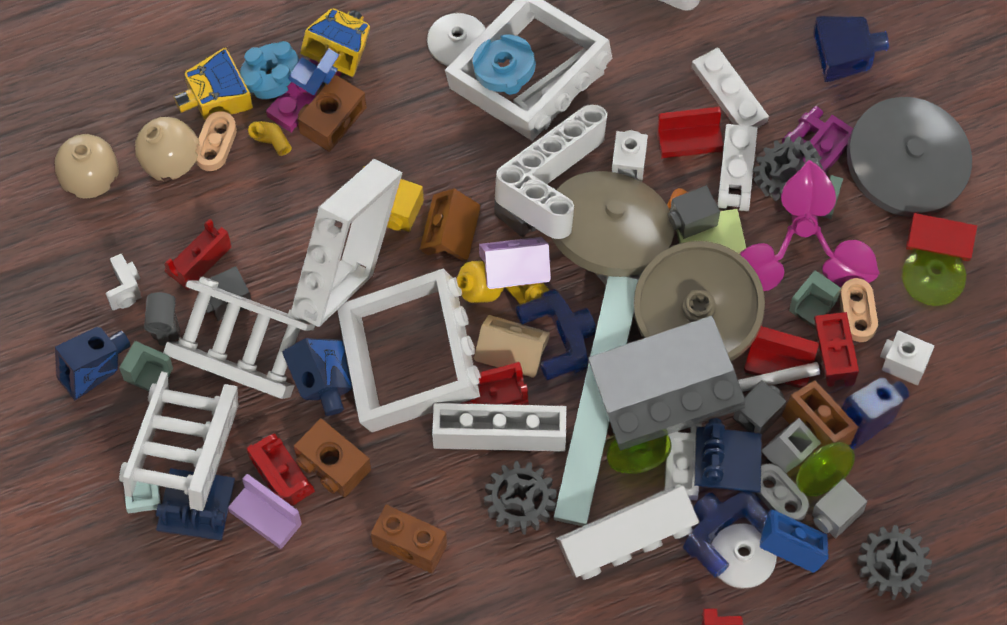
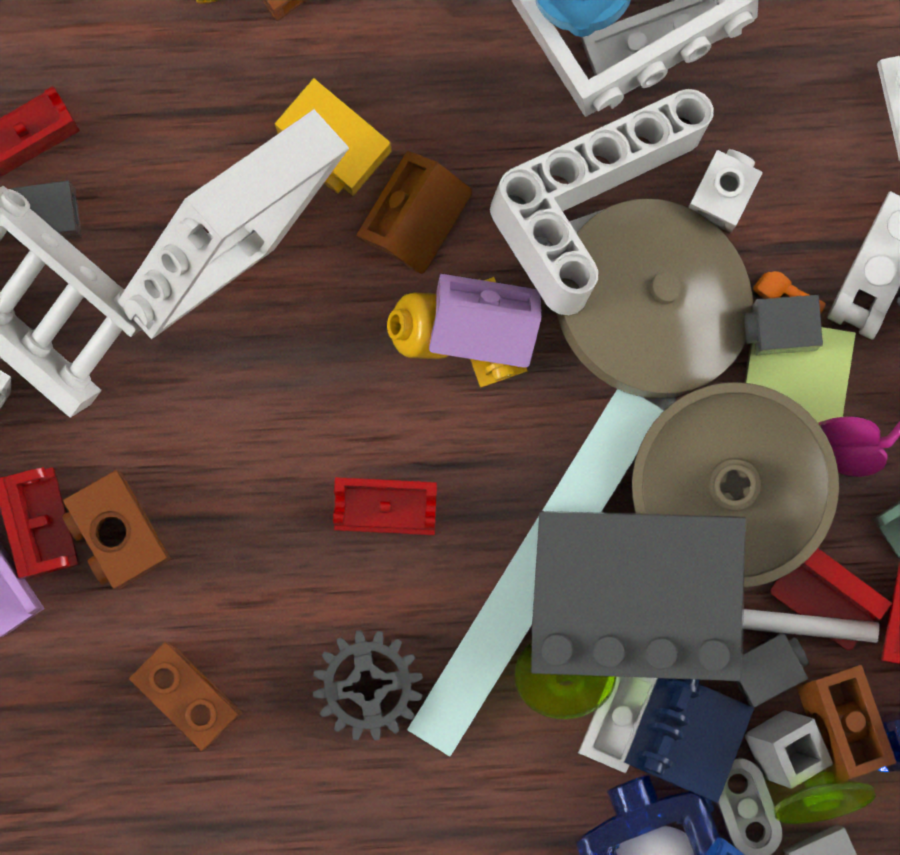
camera: 15 degrees right, 20 degrees up
(320, 371) = (141, 396): dark blue torso -> none
(350, 317) = (206, 394): white window -> none
(499, 427) = (373, 570): white brick -> none
(509, 342) = (439, 437): tan panel -> none
(572, 329) = (539, 444): clear blue connector -> none
(627, 531) = (502, 796): white brick -> none
(689, 132) = (830, 183): red panel -> none

